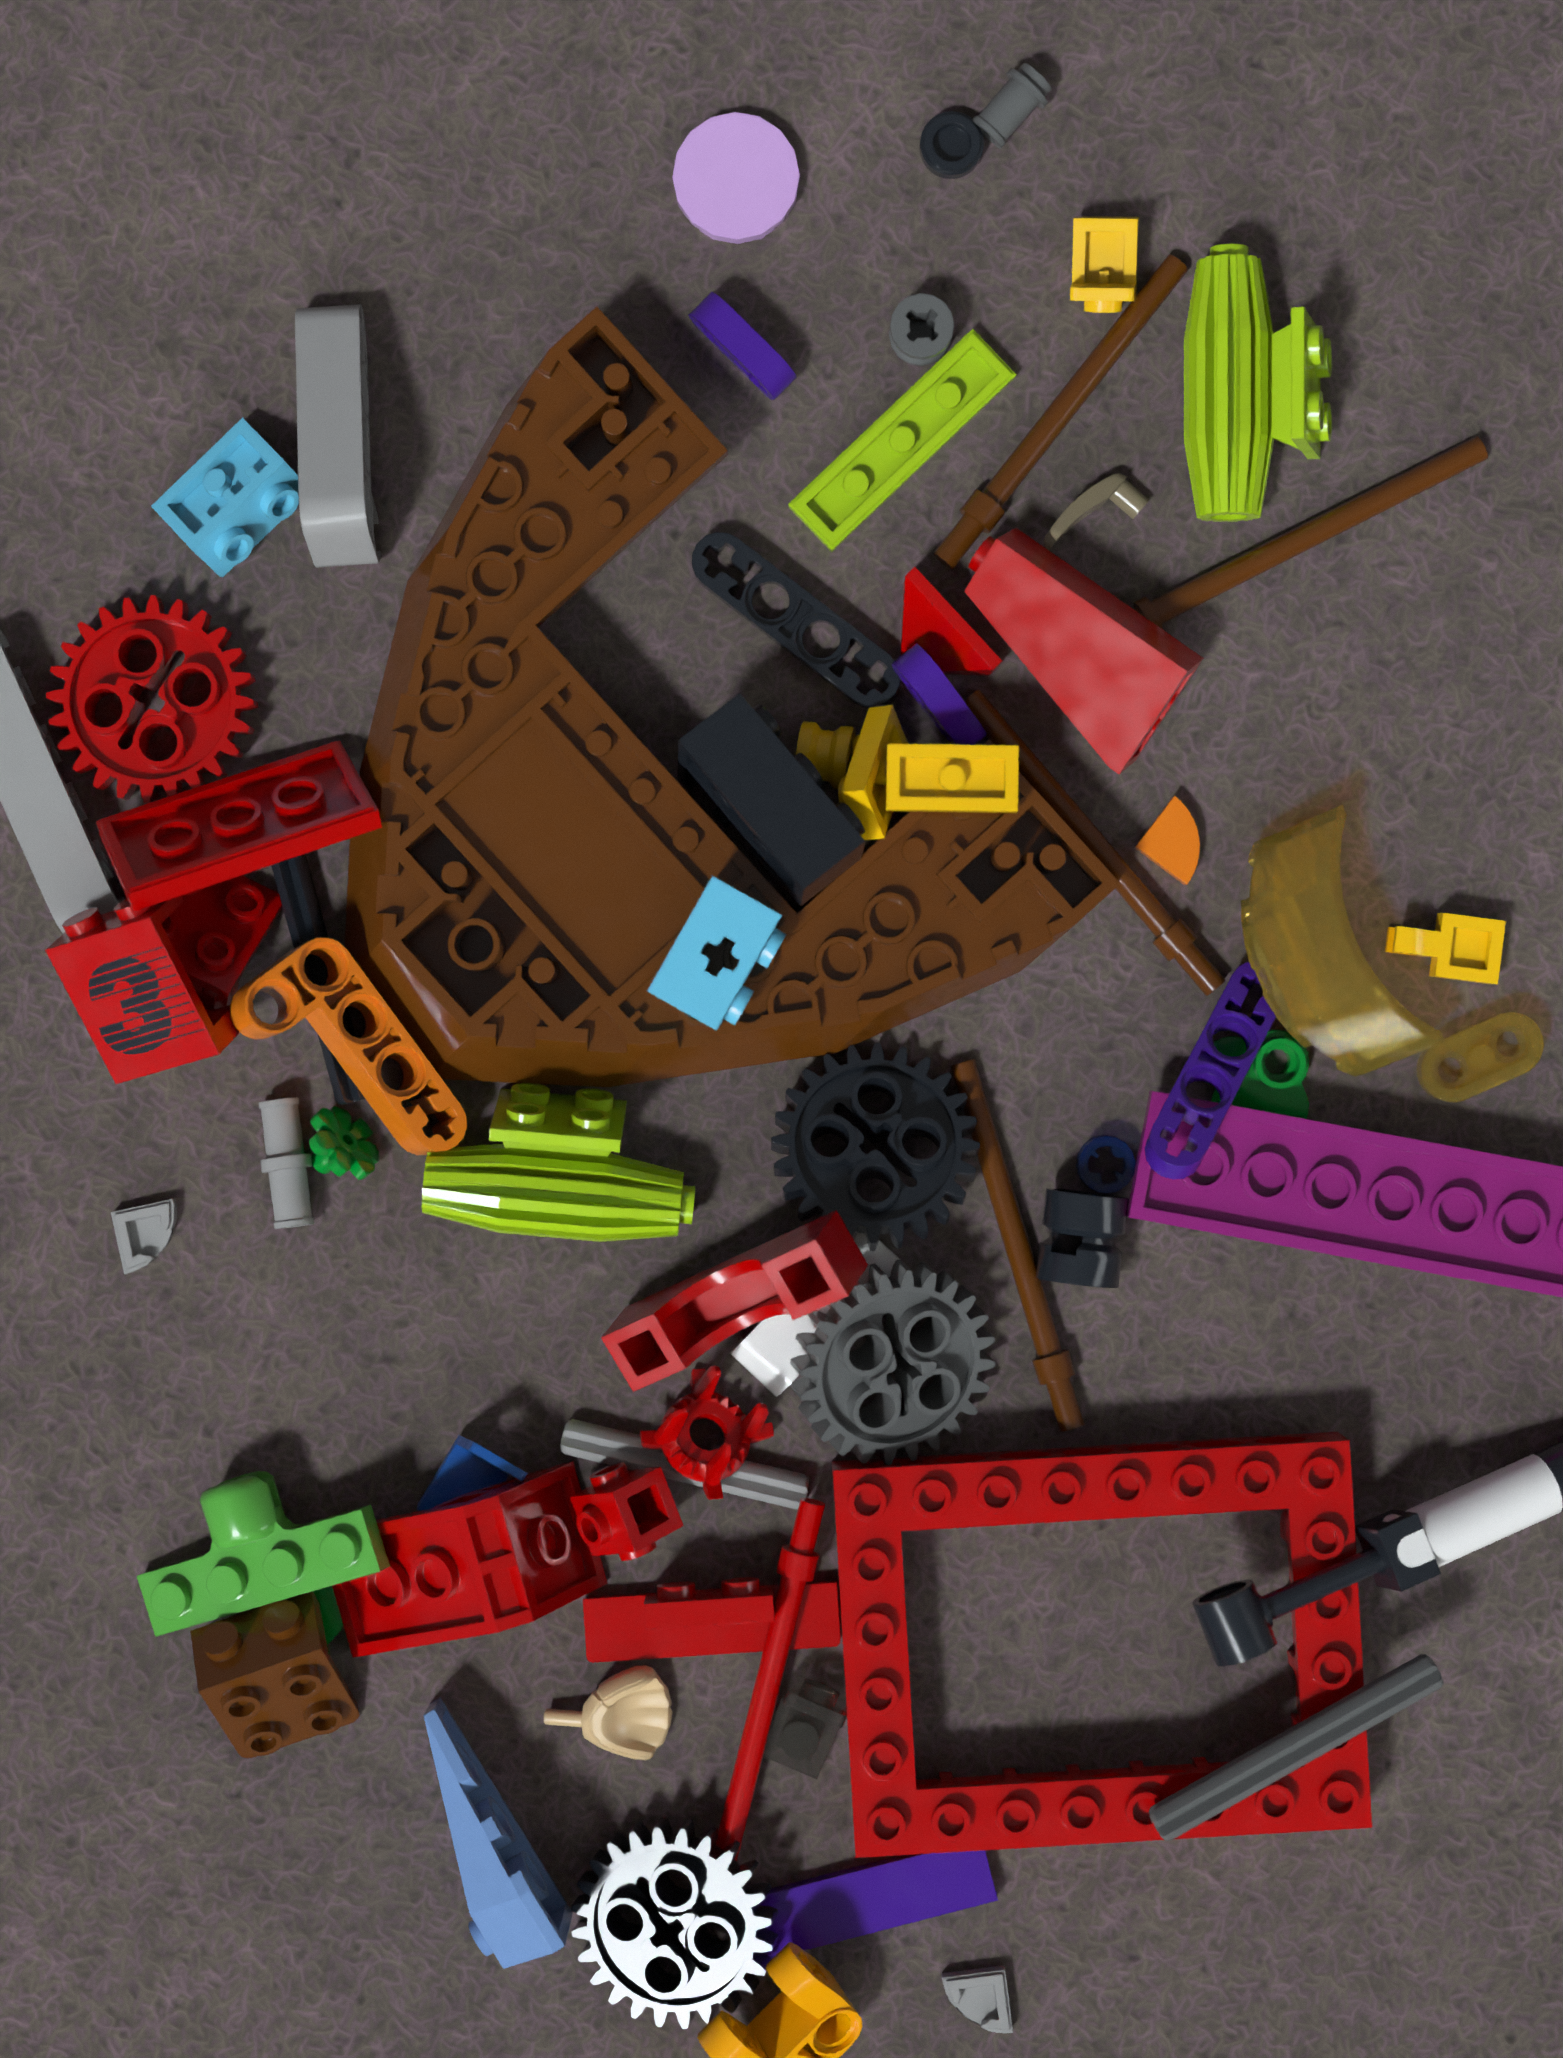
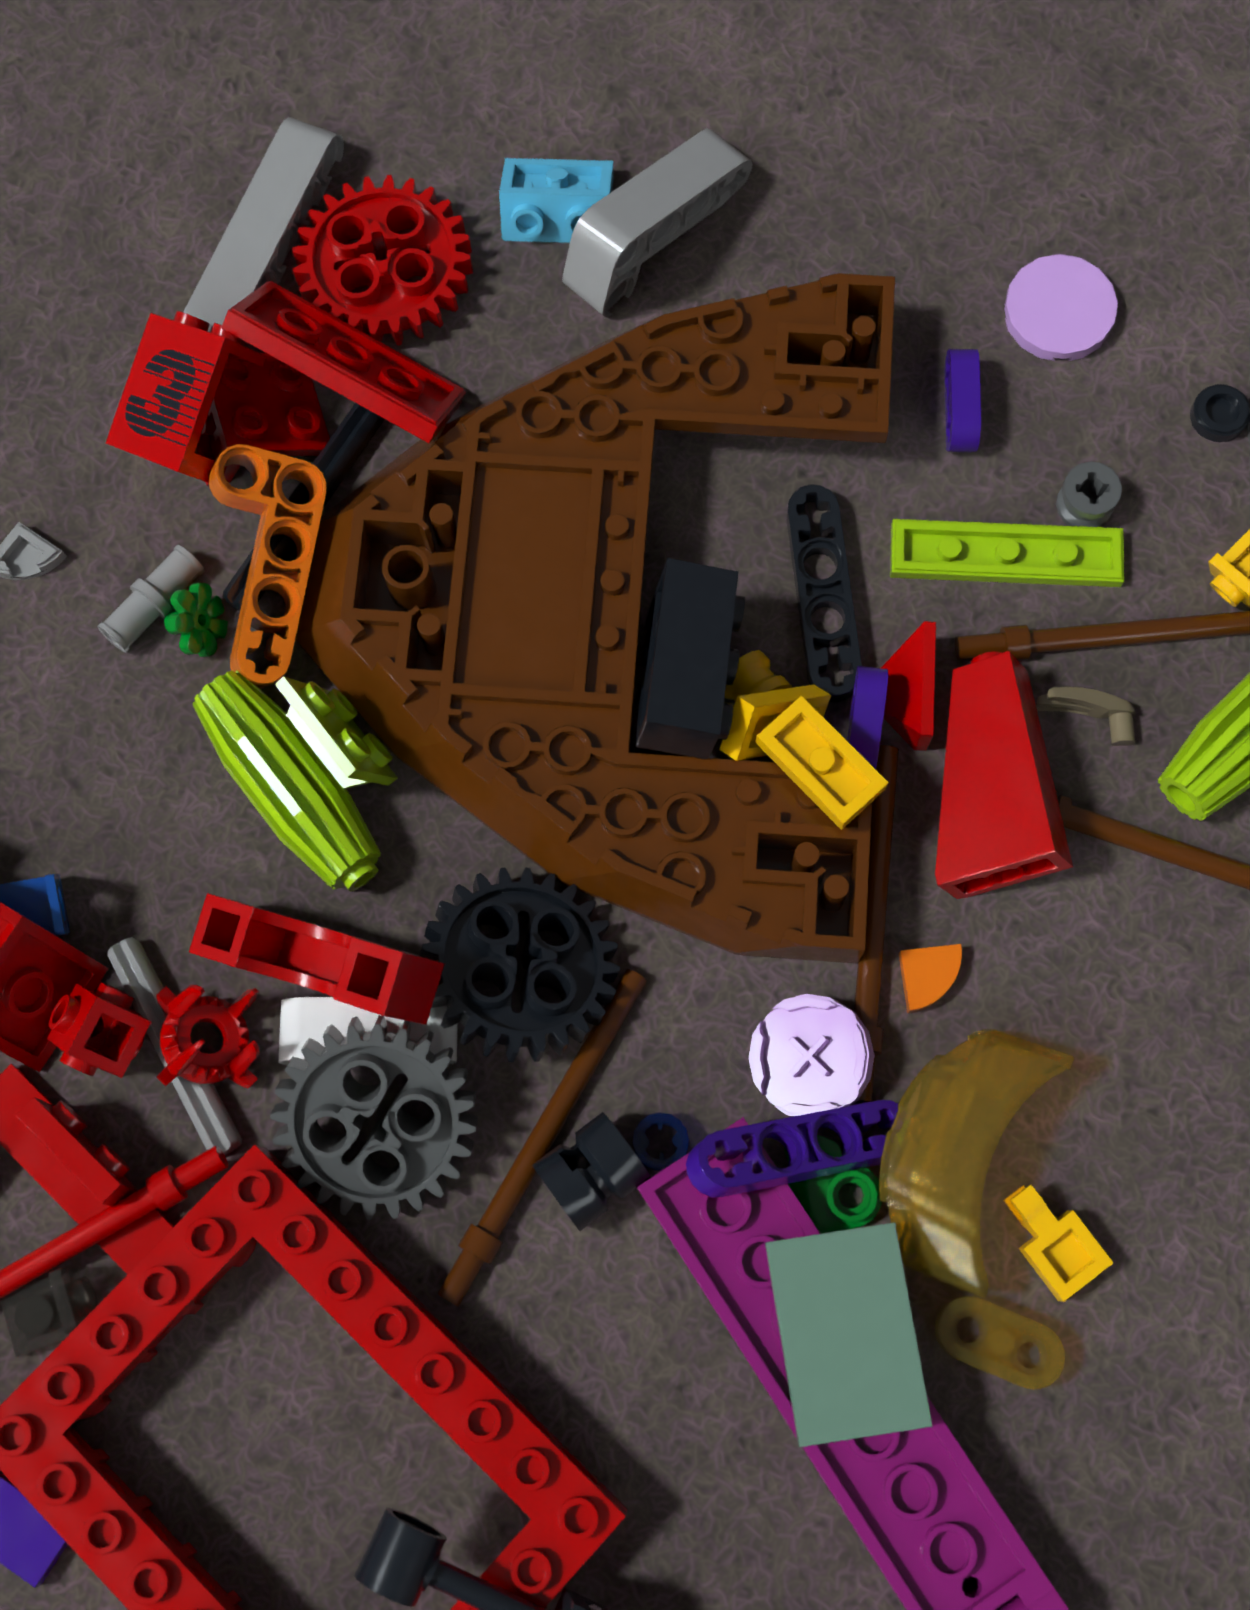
camera: 50 degrees right, 15 degrees down
(718, 915) = (569, 693): medium azure brick -> none
(1151, 992) = (811, 1055): none -> tile
(1376, 1166) = (847, 1335): none -> sand green tile

